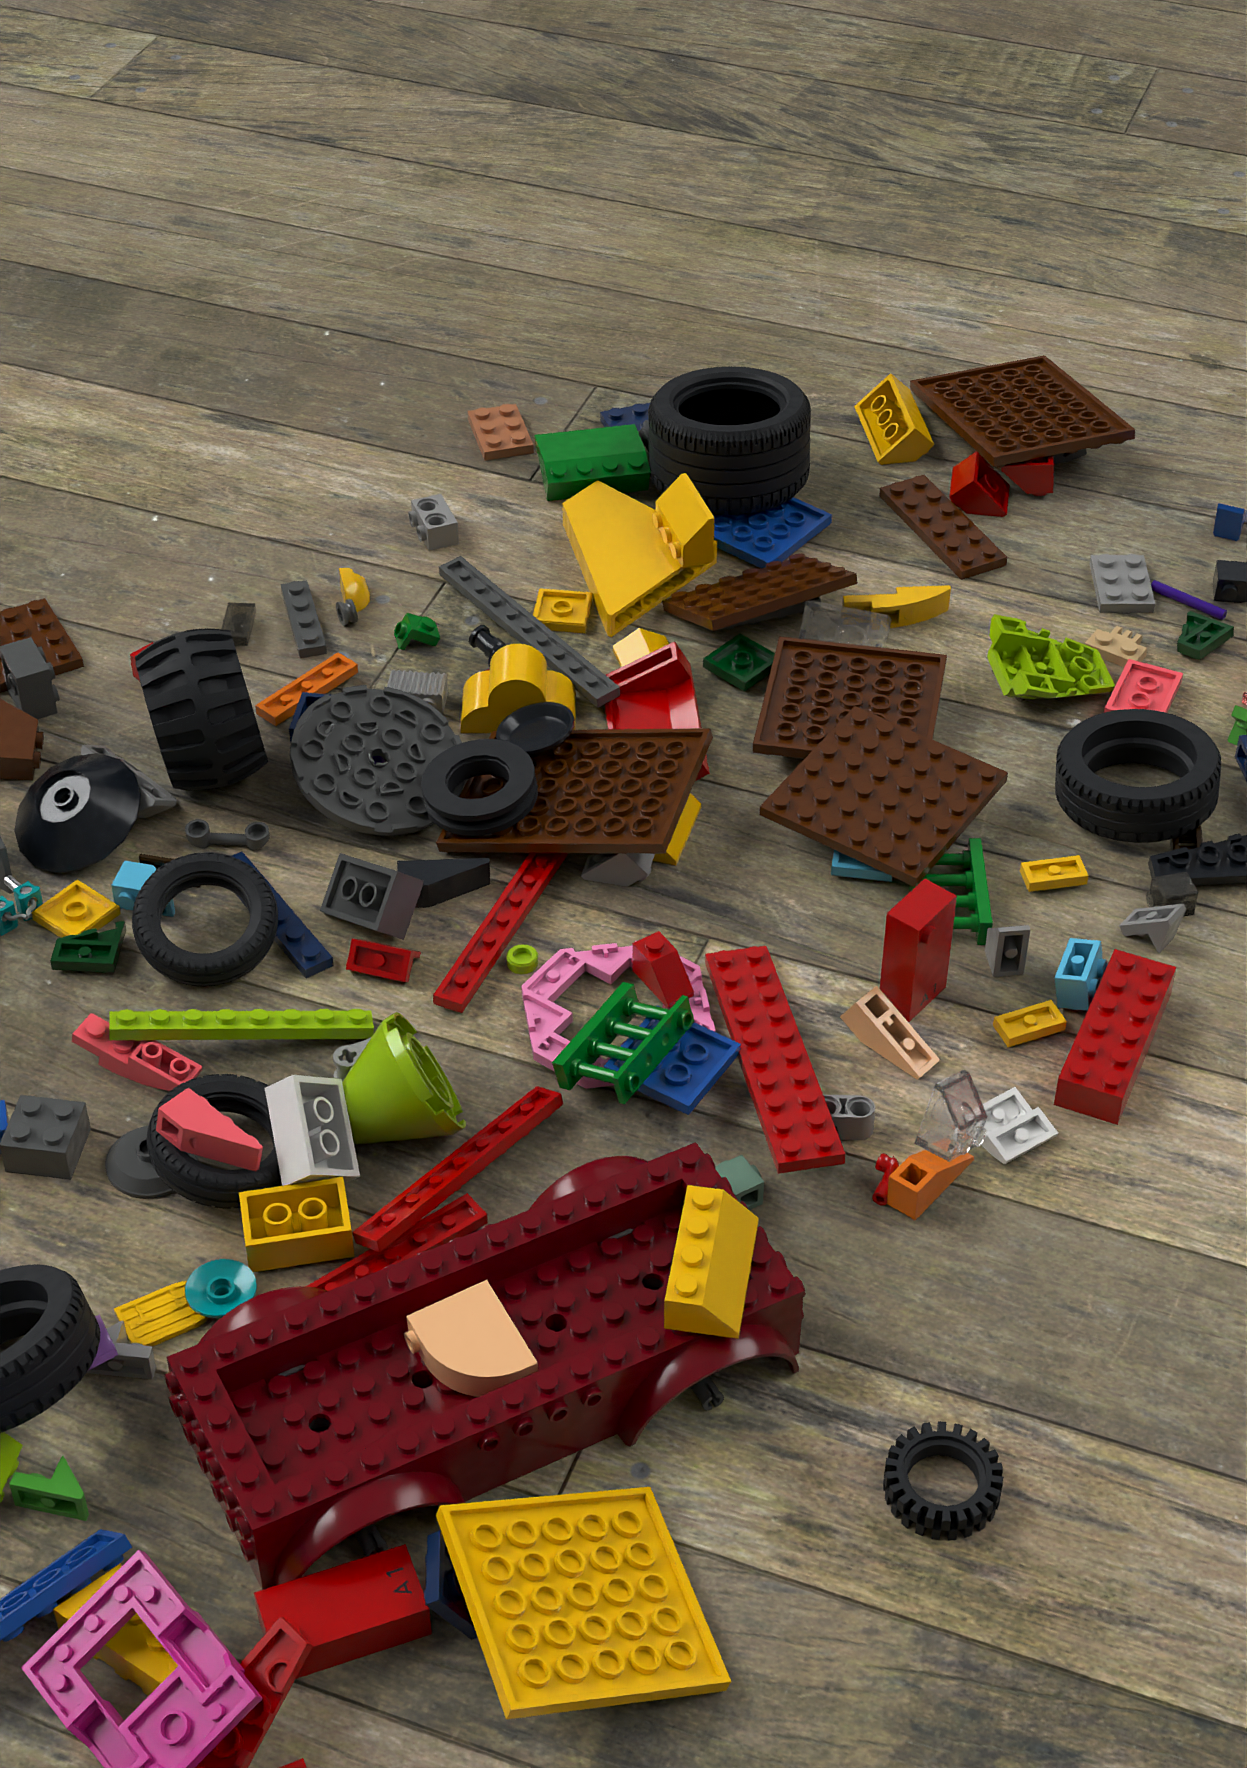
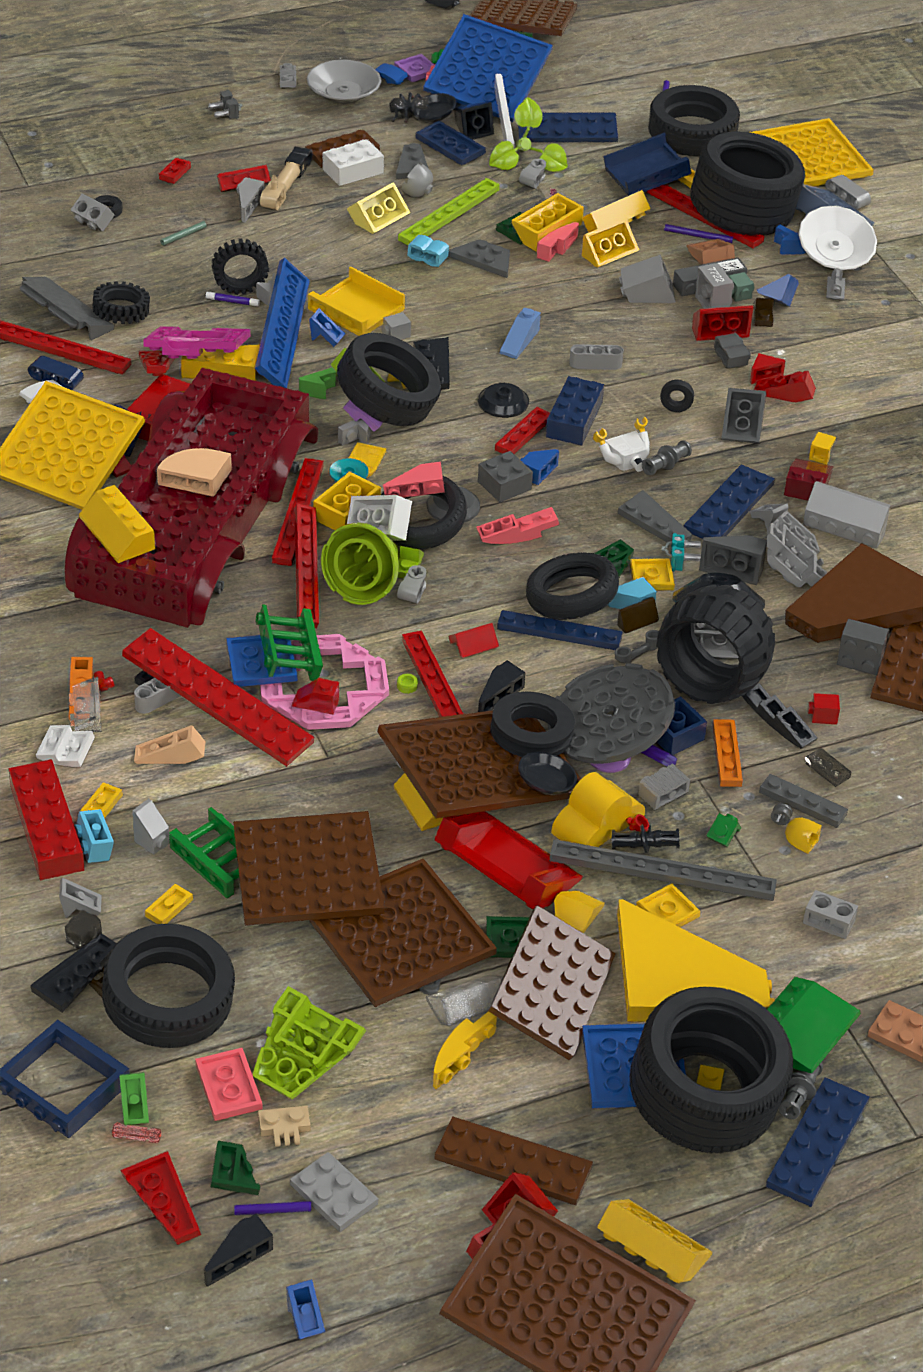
camera: 135 degrees right, 0 degrees up
(240, 1024) = (486, 560): lime plate -> none
(372, 896) = (500, 645): dark grey slope -> none
(685, 523) = (645, 979): yellow slope -> none
(744, 1180) = (173, 631): sand green brick -> none
(917, 948) = (182, 759): red brick -> none

